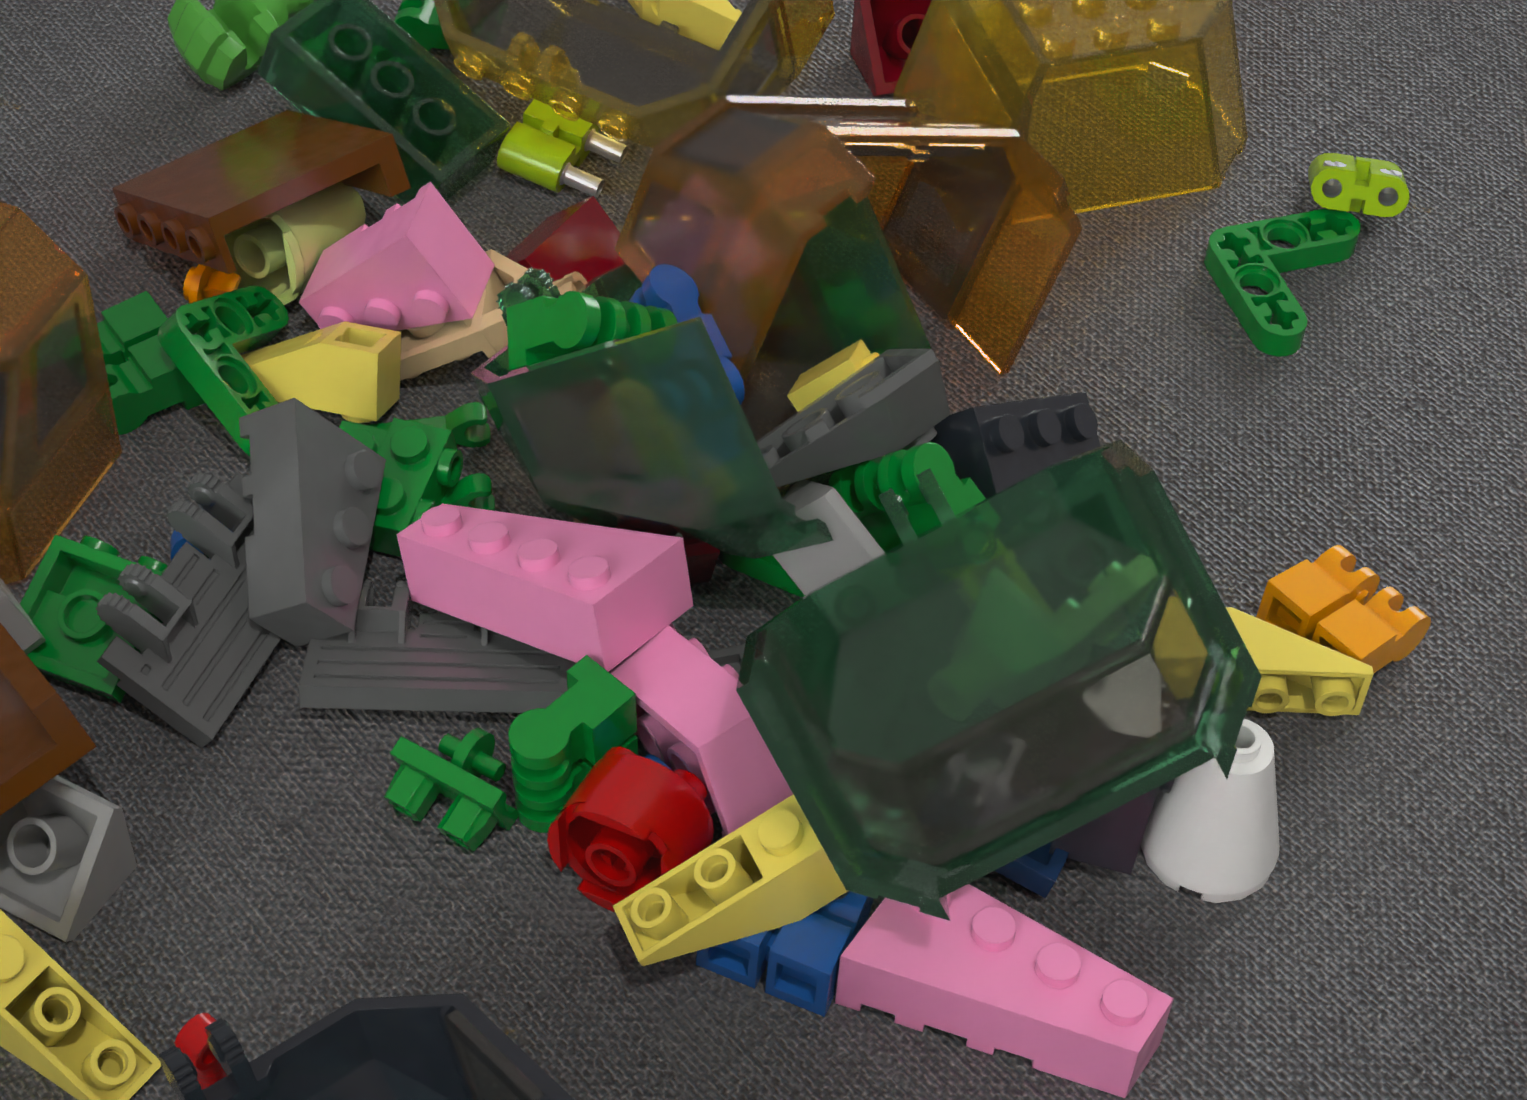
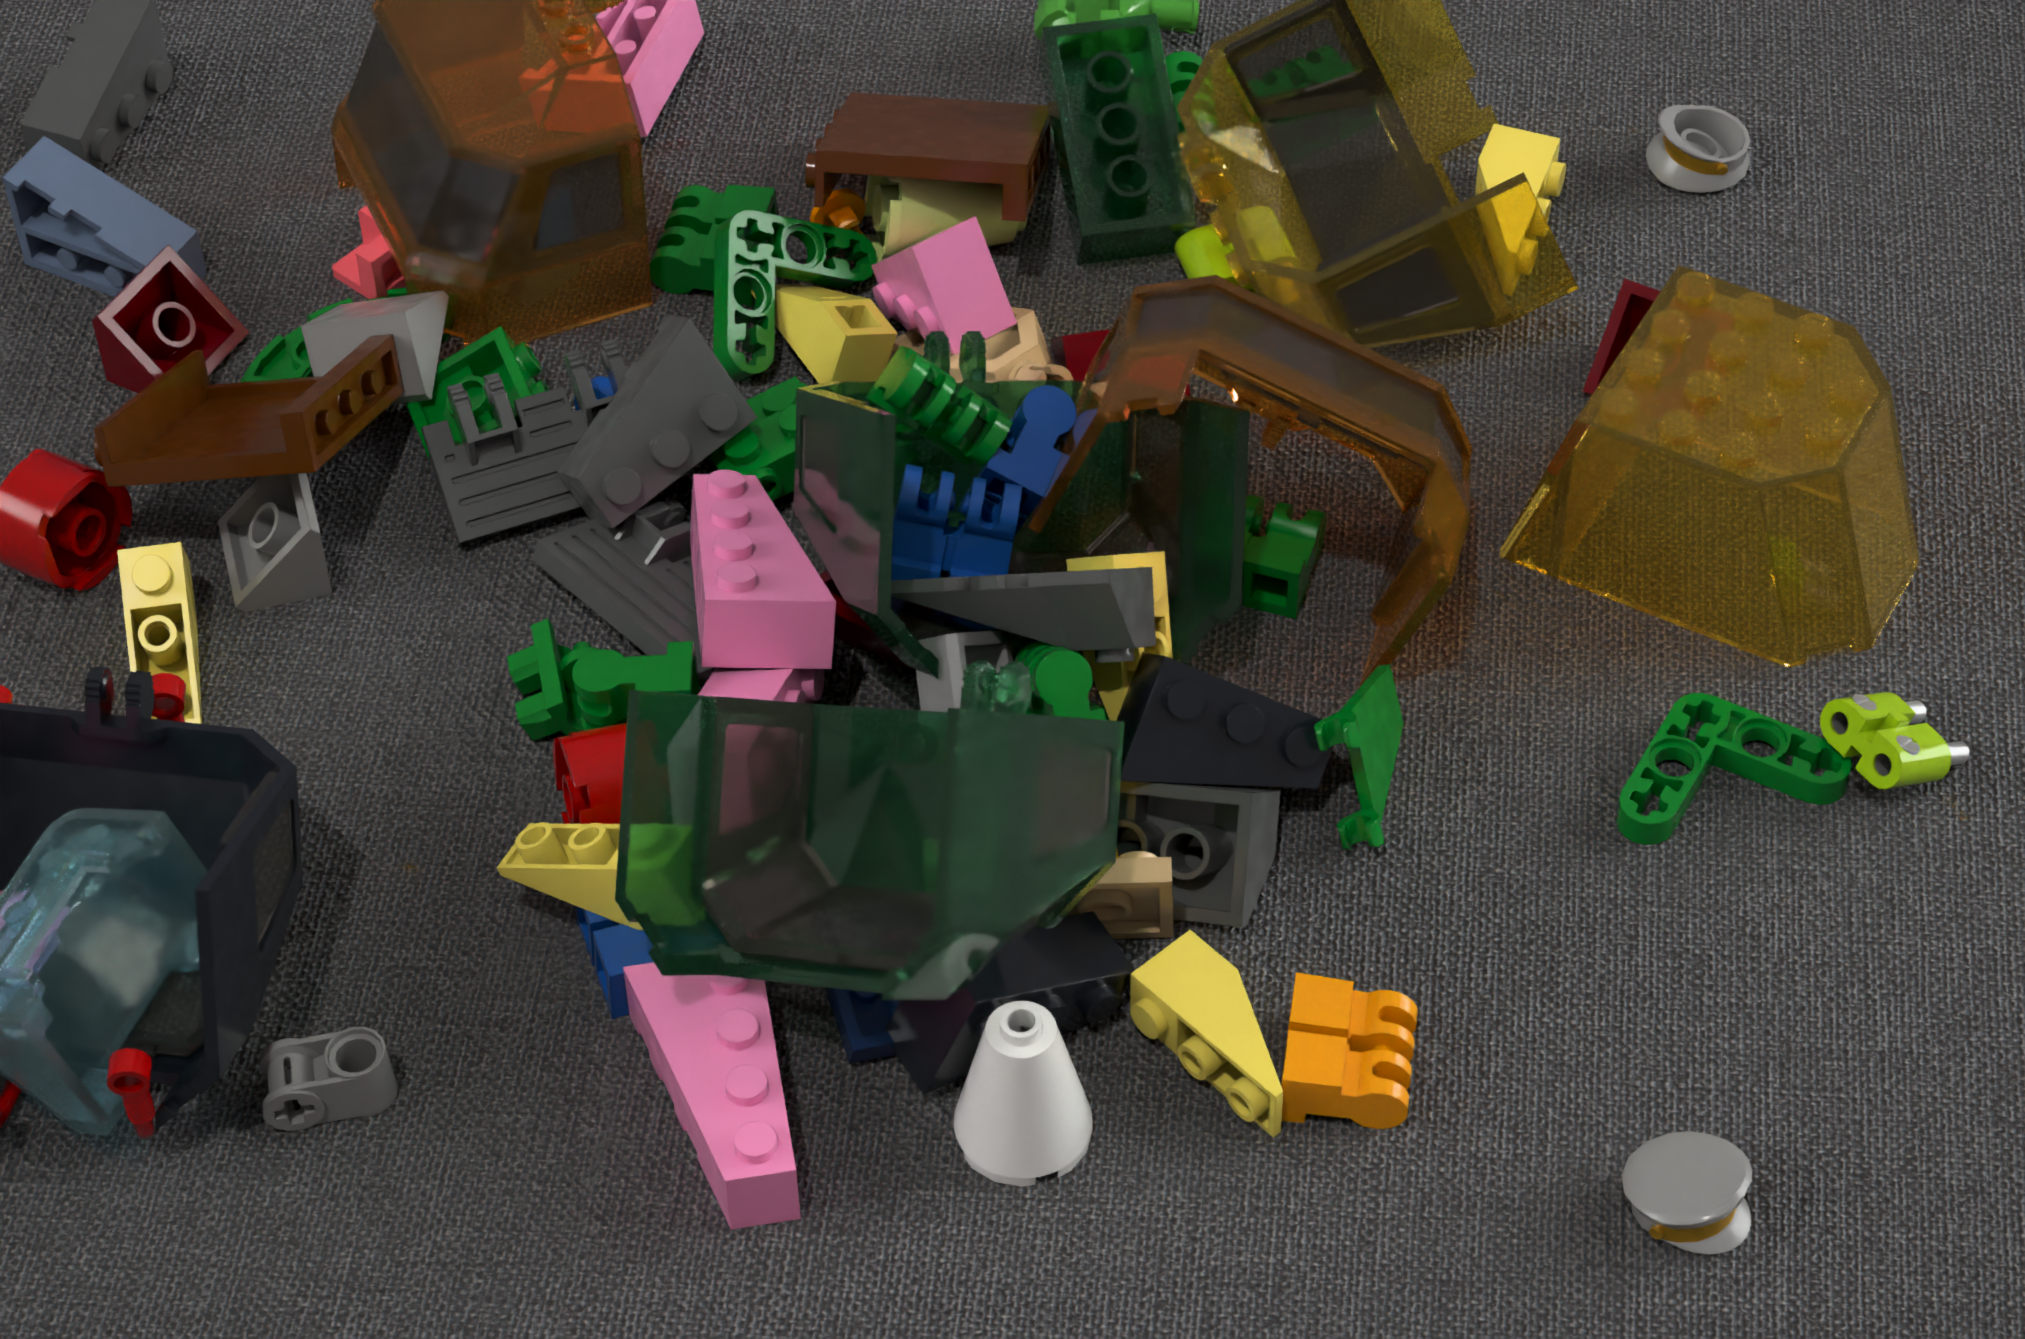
camera: 50 degrees right, 0 degrees up
(1069, 377) = (1372, 733): none -> green flag

